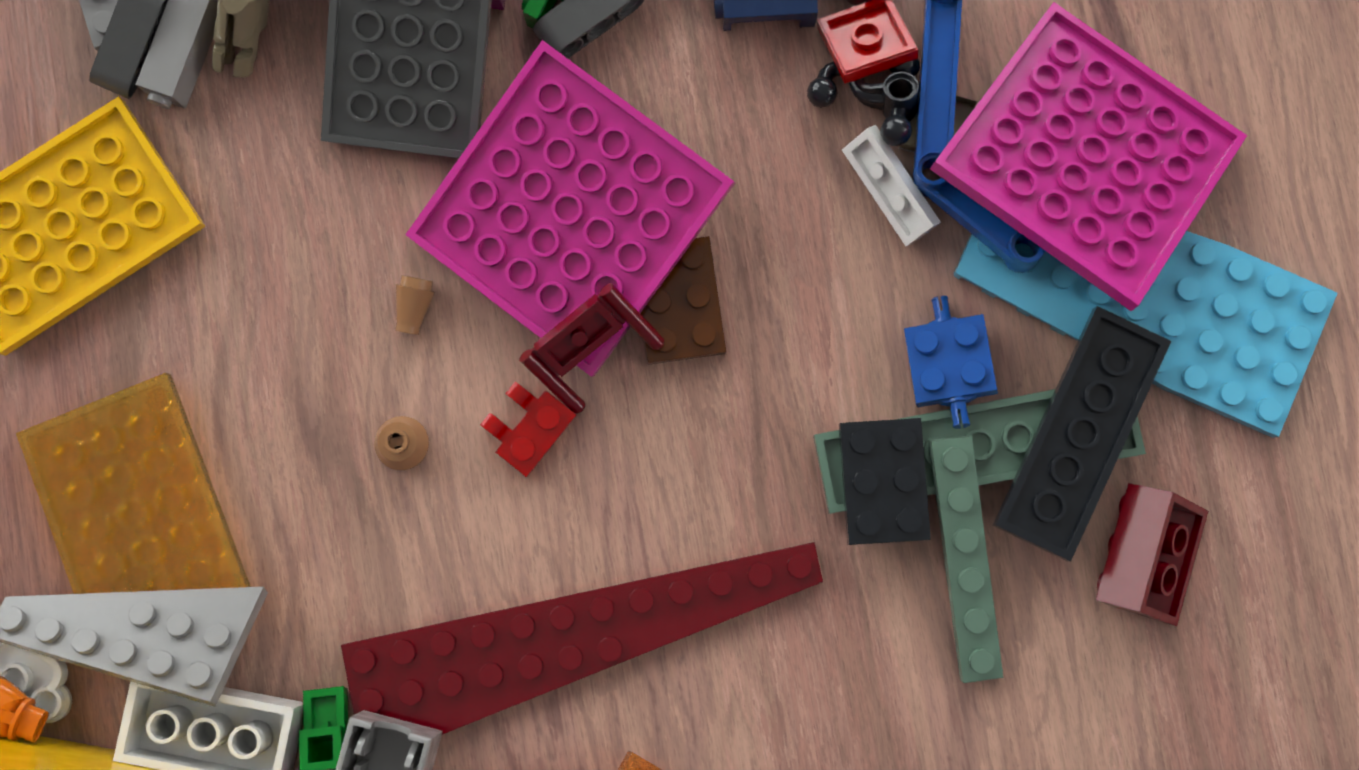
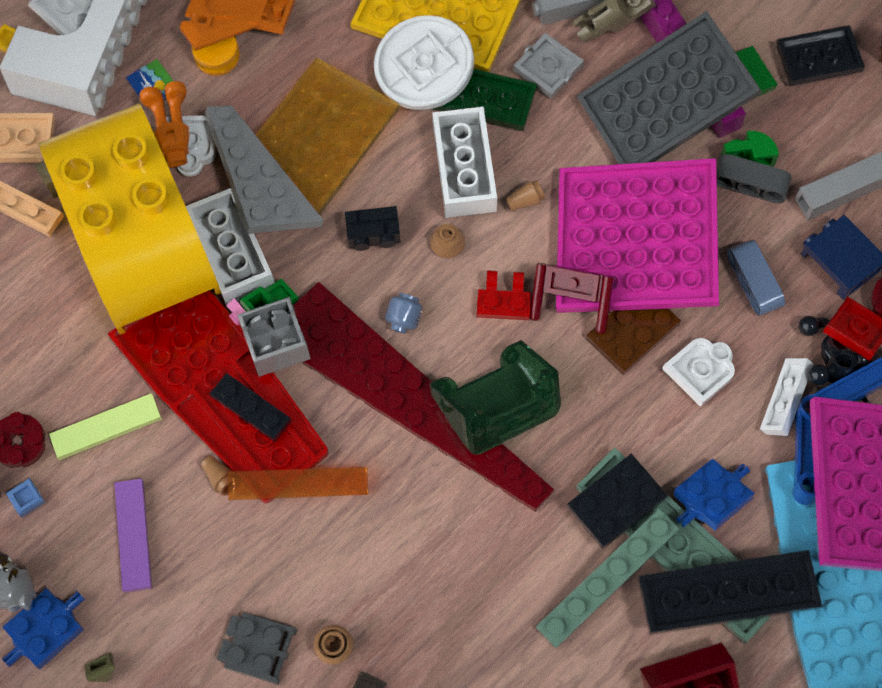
camera: 55 degrees right, 15 degrees down
(130, 300) = (424, 62): none -> white plate
(230, 258) = (504, 99): none -> dark green plate
(250, 144) = (548, 65): none -> light grey plate
(310, 348) = (464, 162): none -> white brick
(316, 527) = (372, 228): none -> black brick
(461, 567) = (404, 313): none -> sand blue head
(661, 532) = (501, 402): none -> clear green windscreen
(718, 107) = (755, 277): none -> sand blue beam
(787, 257) = (701, 369): none -> white plate

